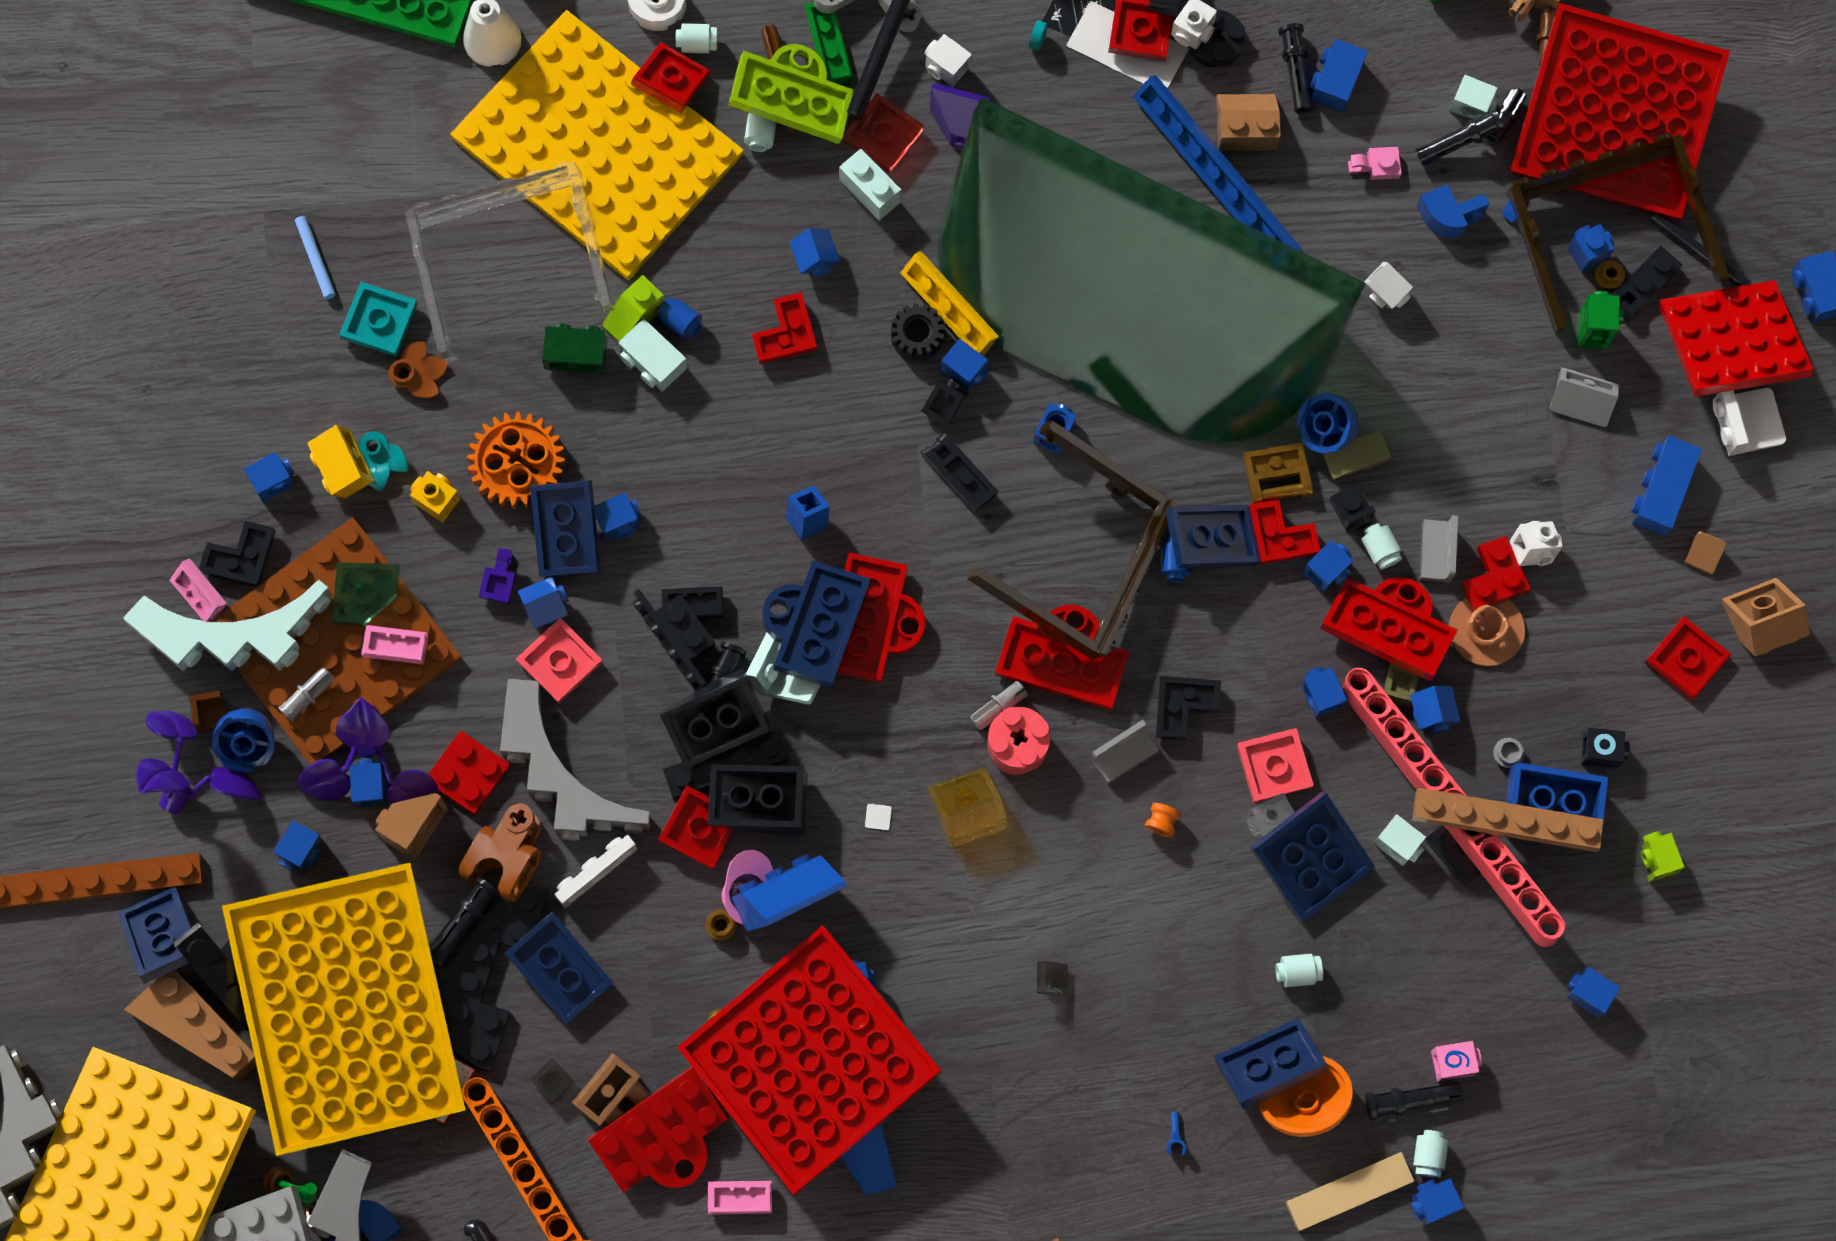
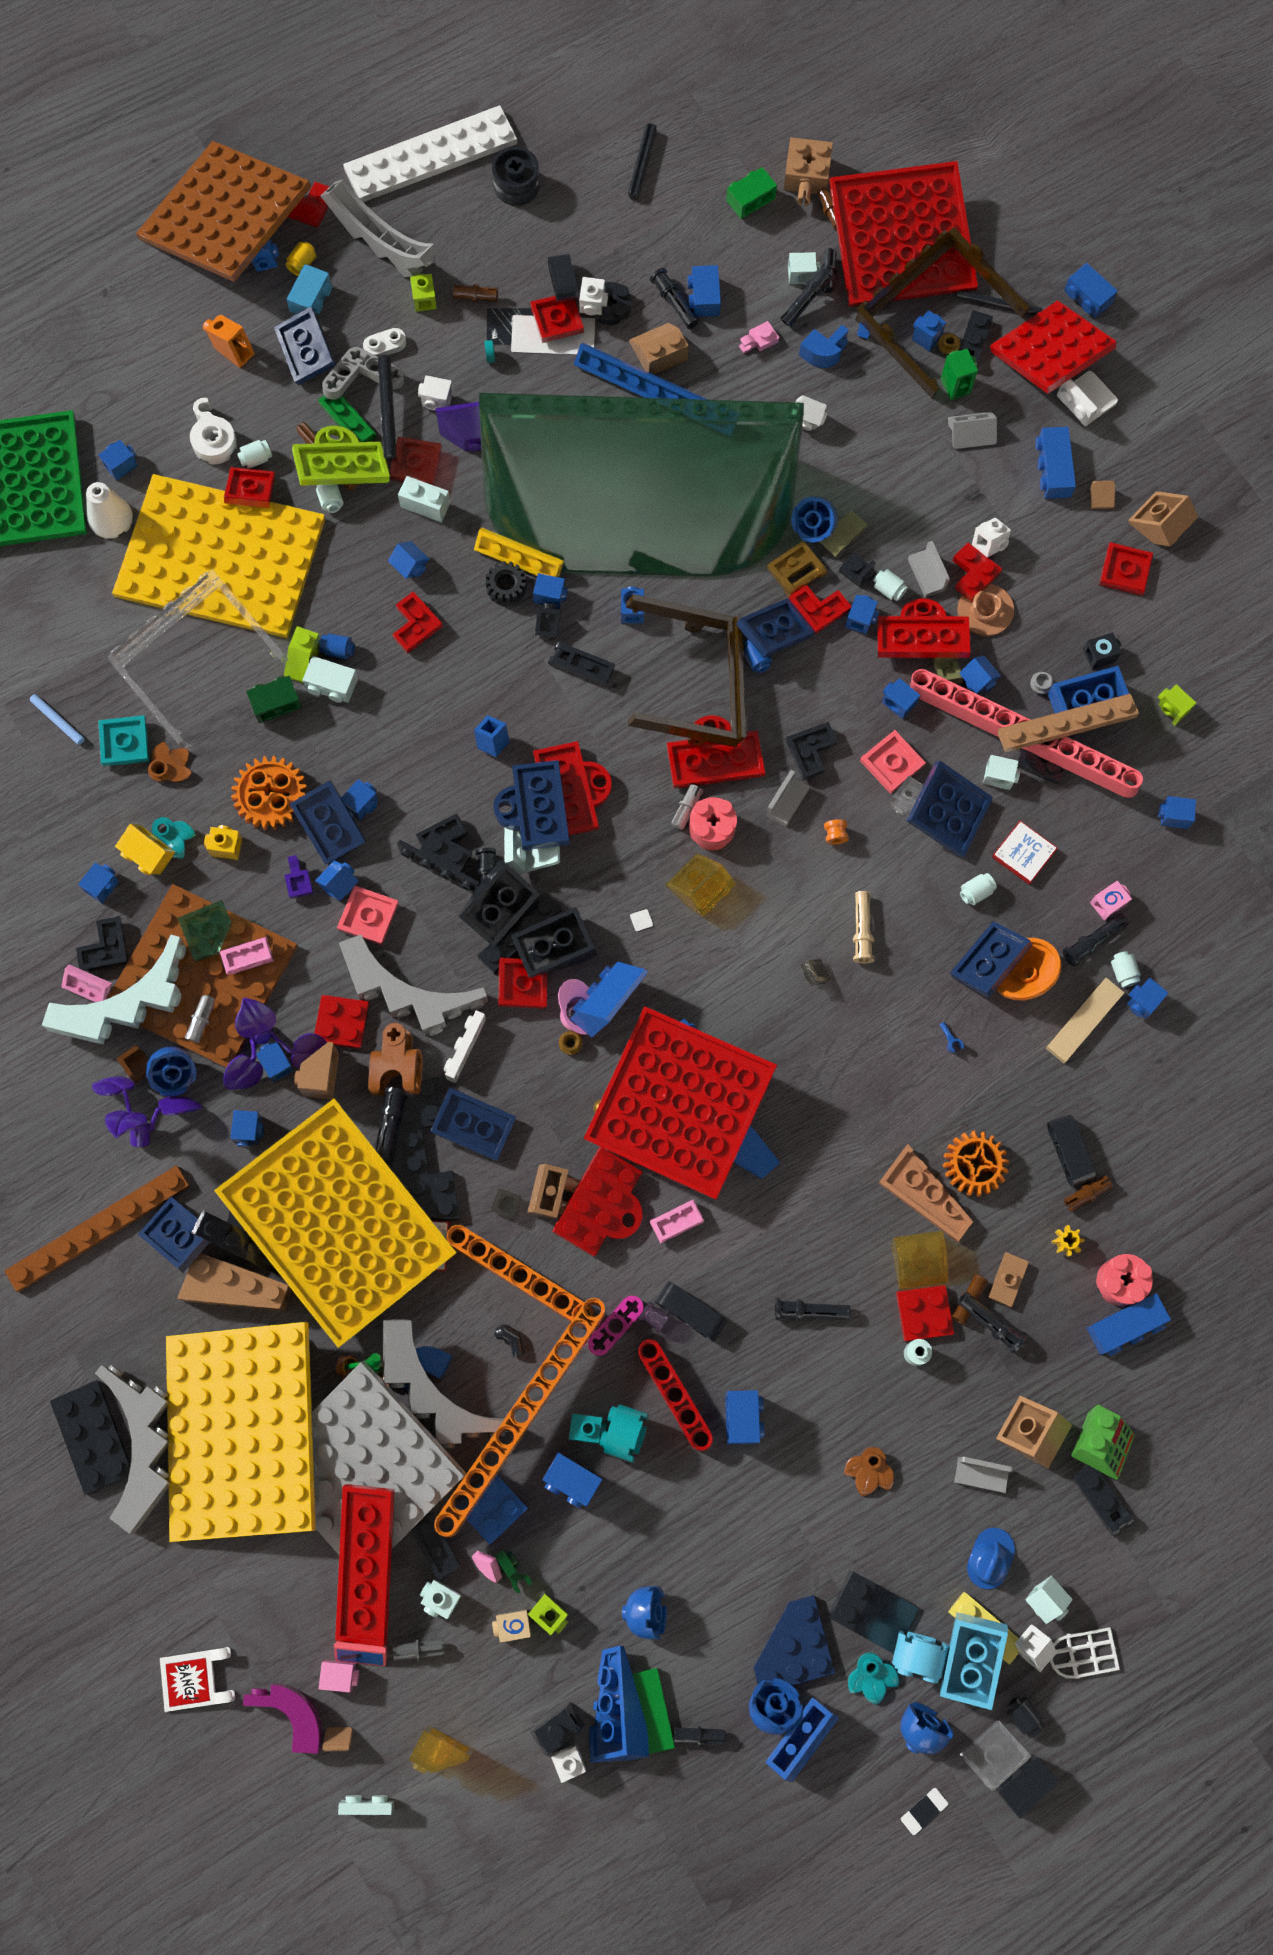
camera: 25 degrees left, 0 degrees up
(1131, 963) = (863, 938): none -> tan pin
(1380, 952) = (1024, 852): none -> white tile

